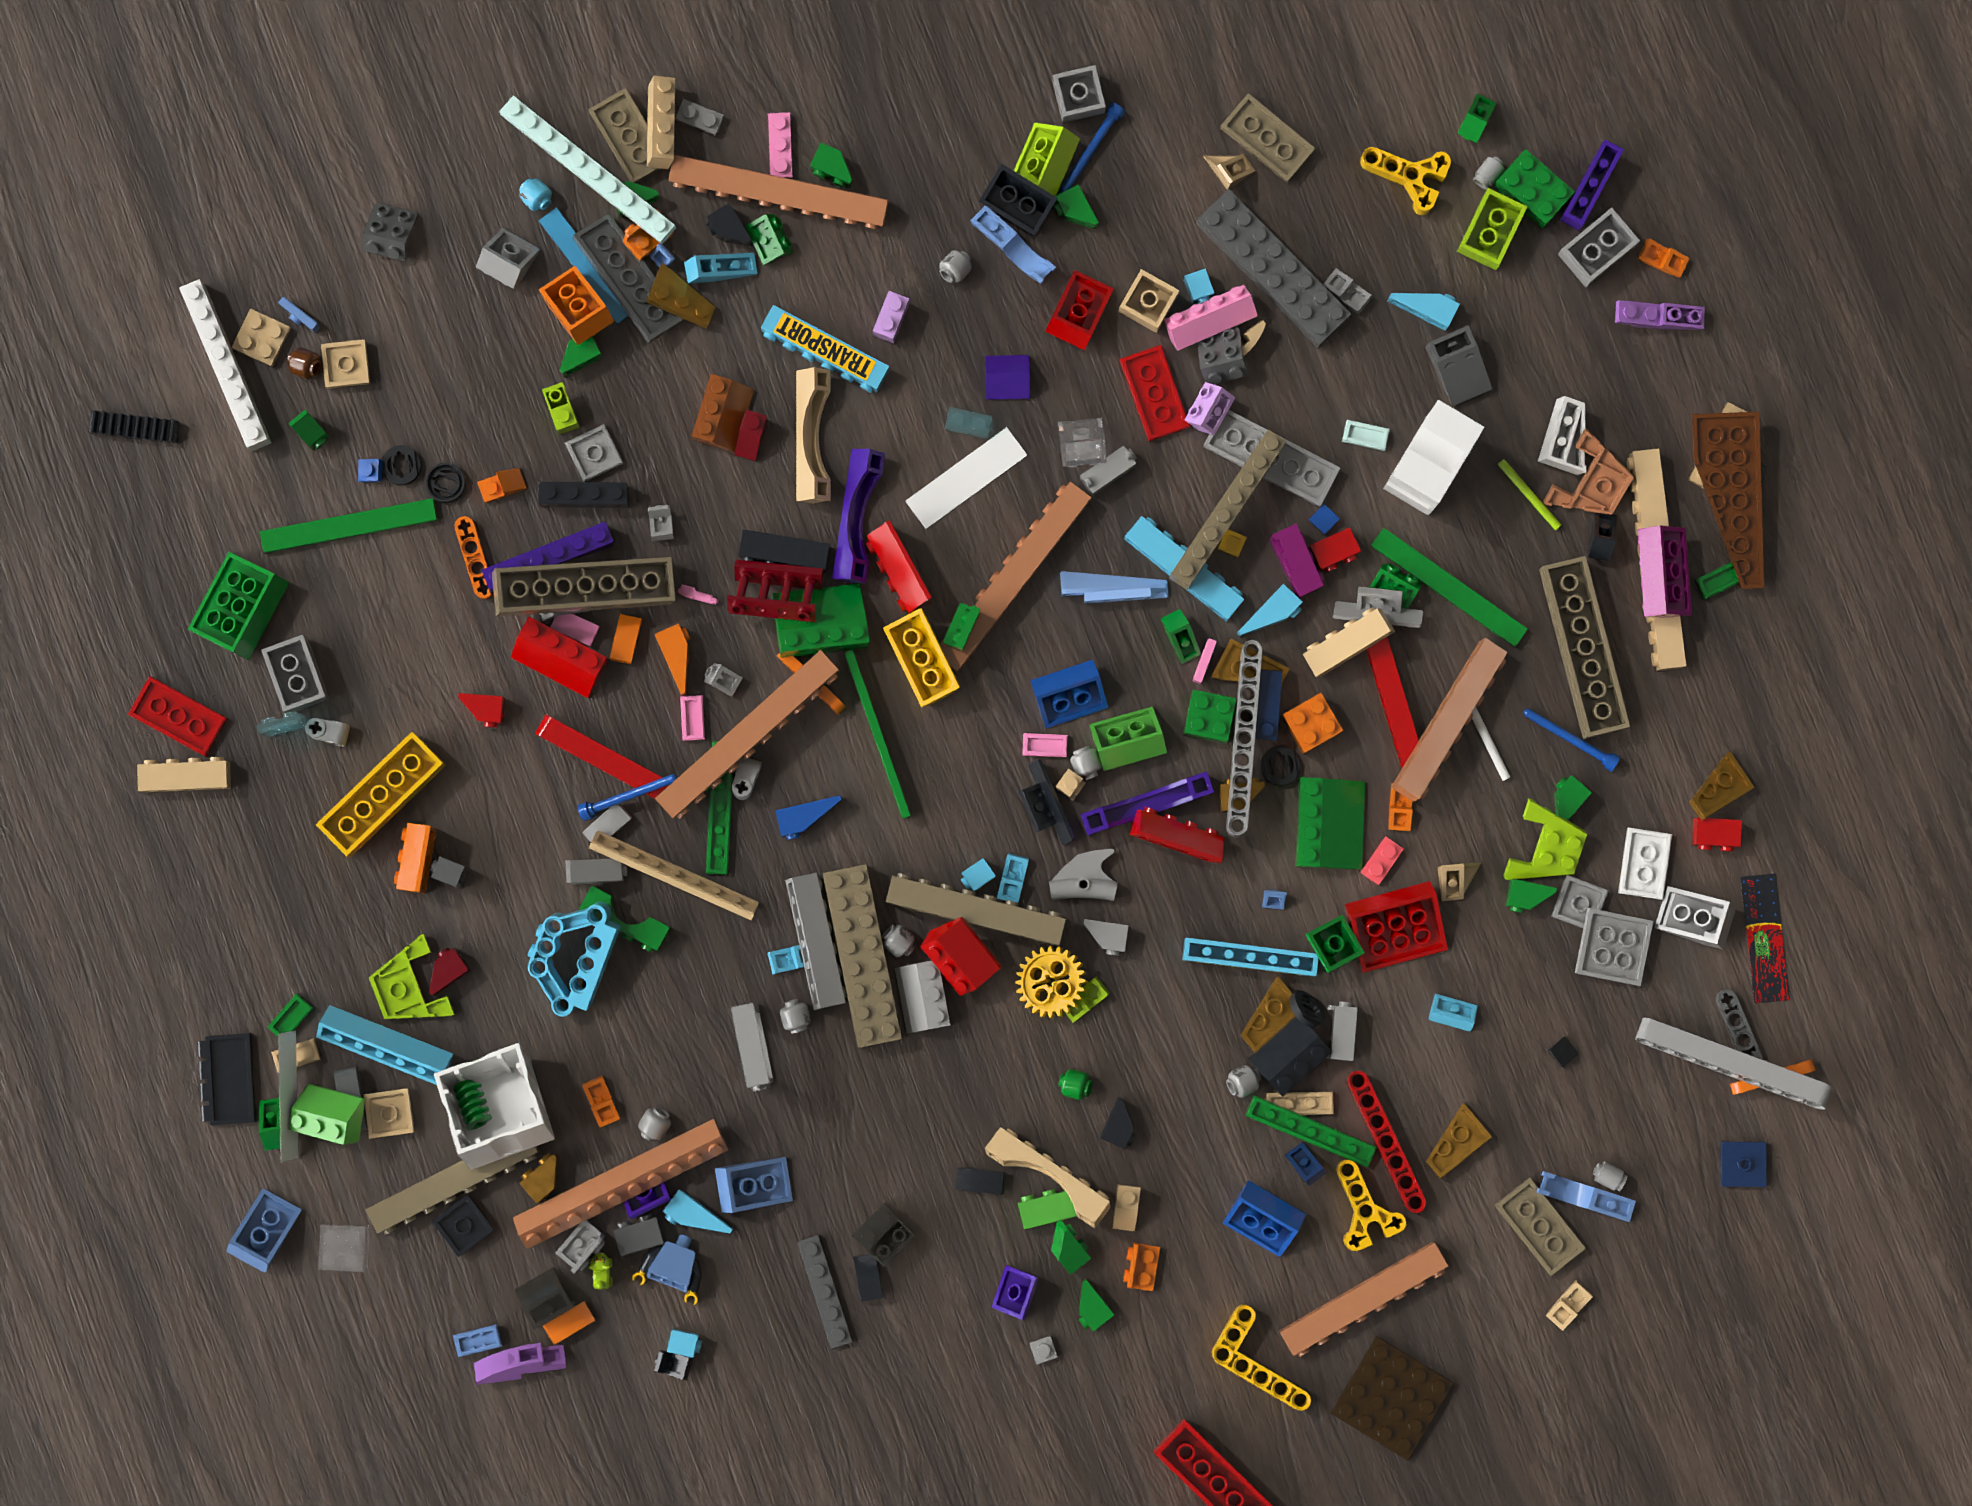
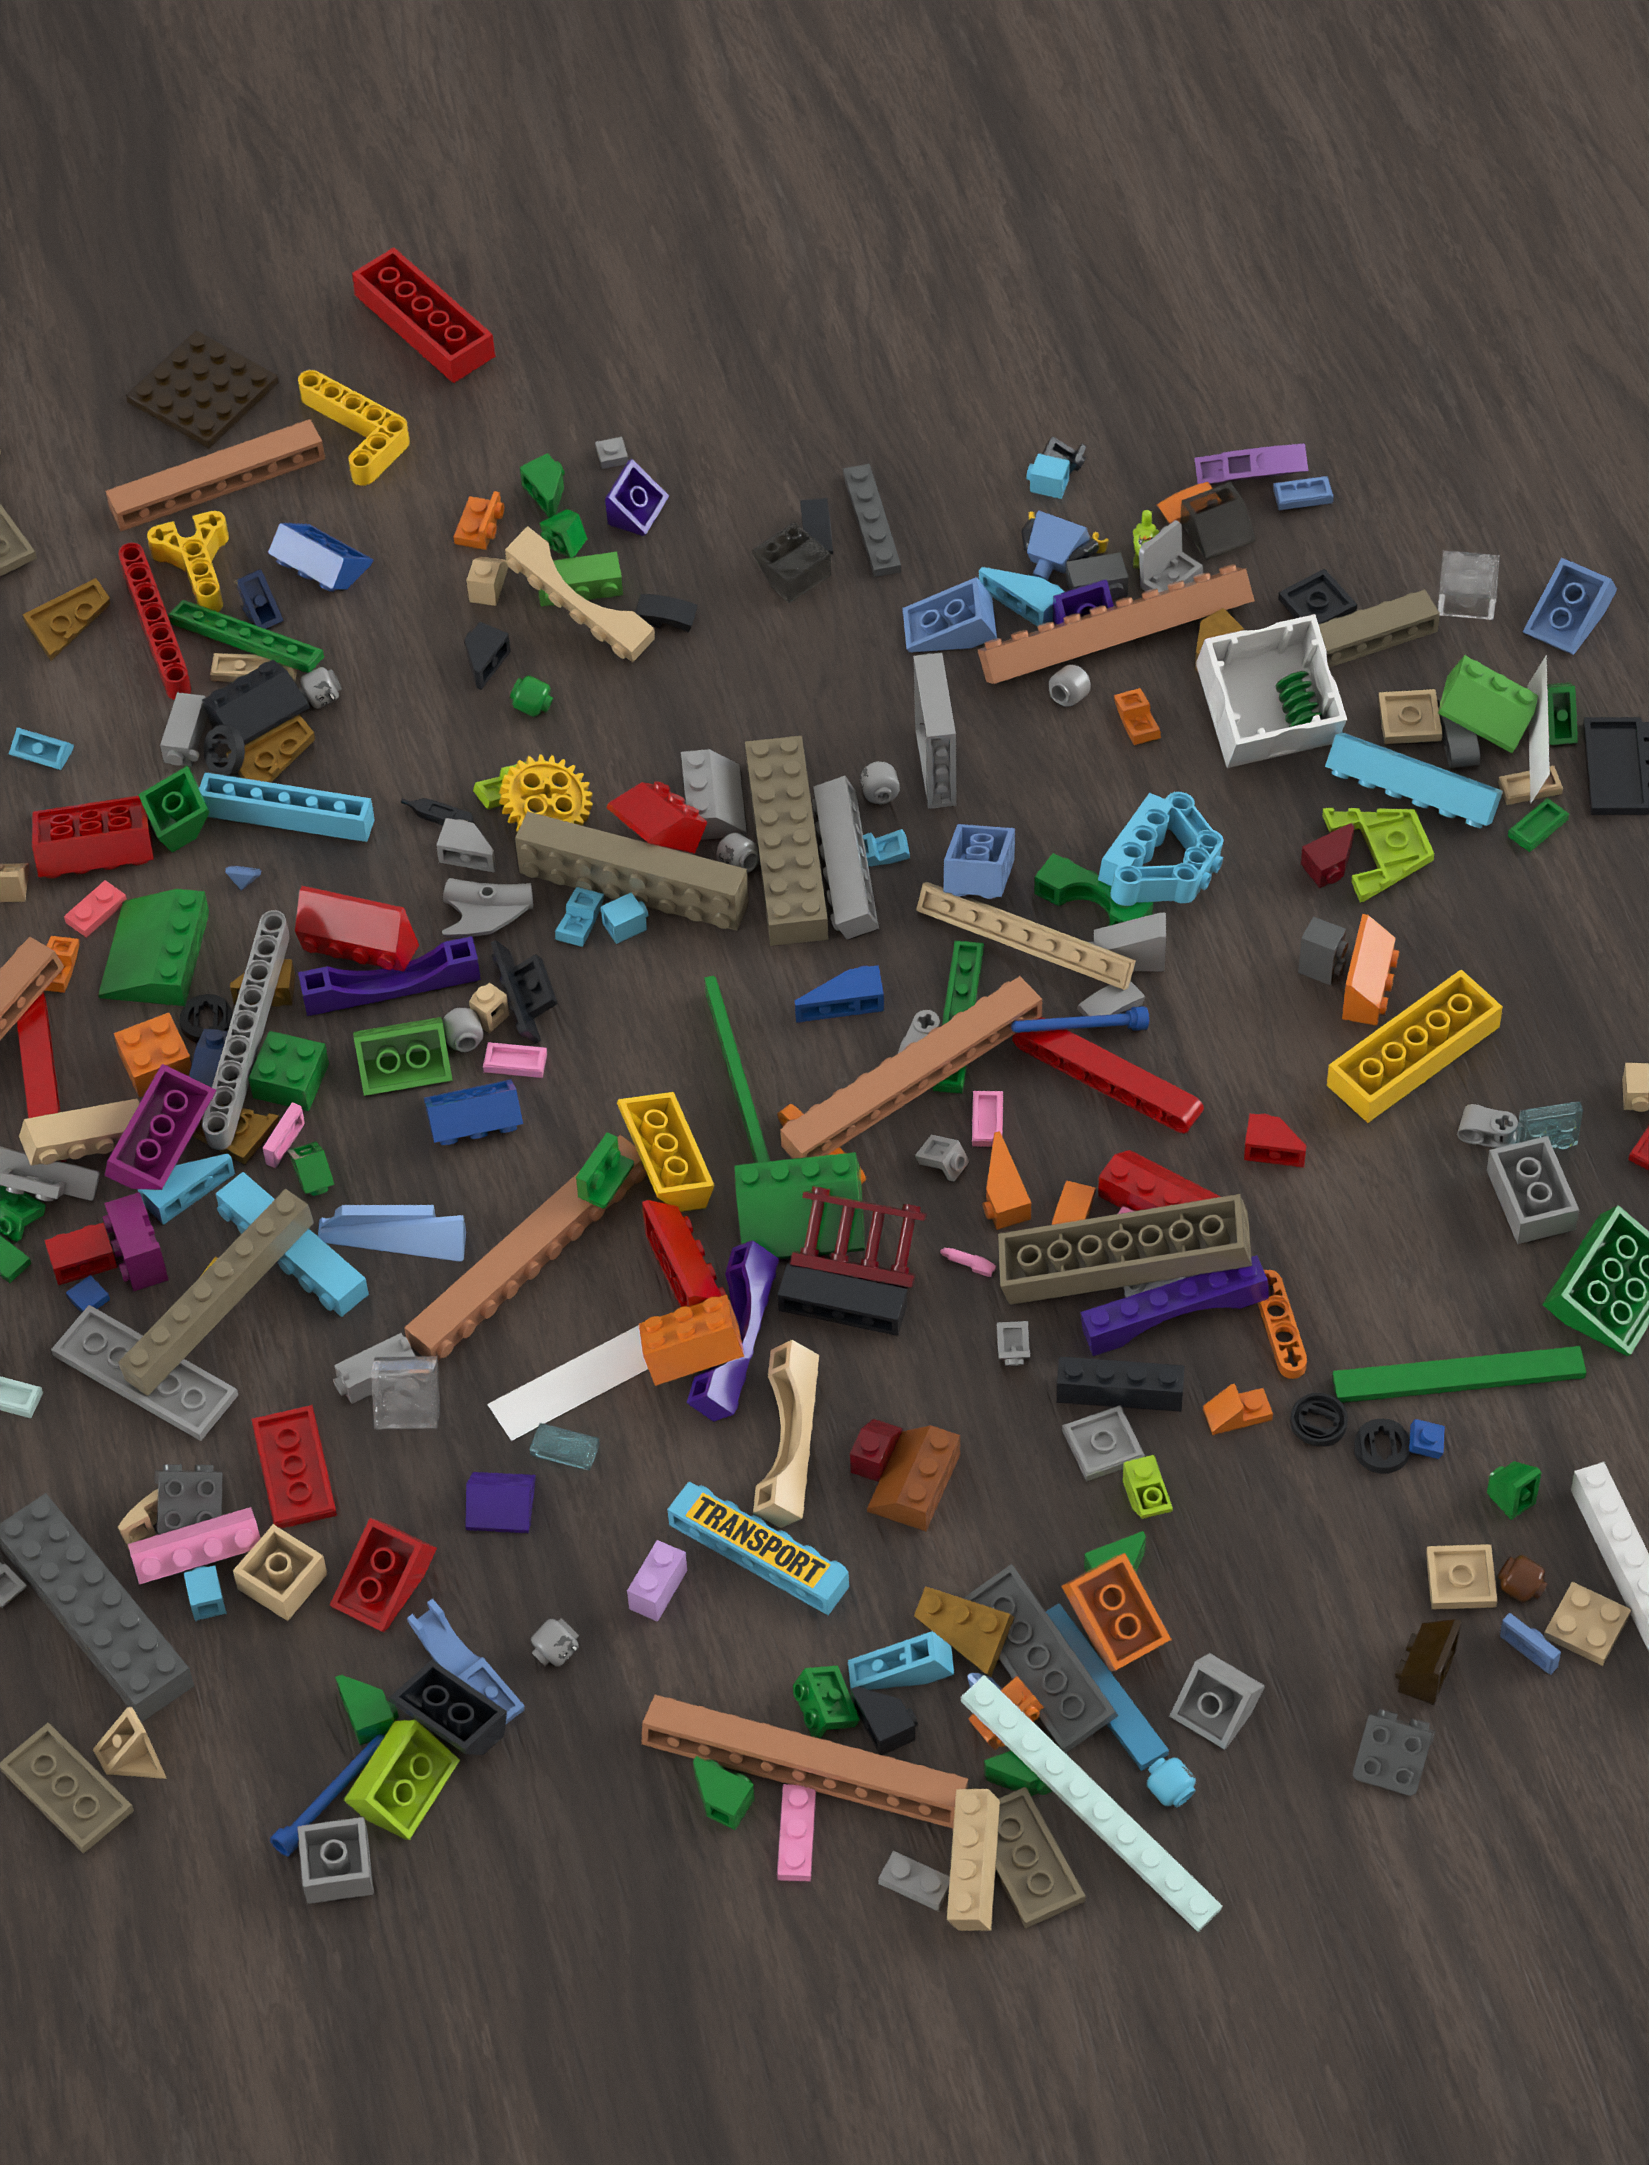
camera: 170 degrees left, 30 degrees down
(366, 293) = (1428, 1660): none -> dark brown slope
(711, 934) = (979, 860): none -> medium blue brick
(886, 496) = (690, 1339): none -> orange brick
(1131, 969) = (437, 811): none -> black piece
(1209, 408) = (219, 1430): lavender brick -> none
(1291, 638) = (159, 1130): none -> magenta slope

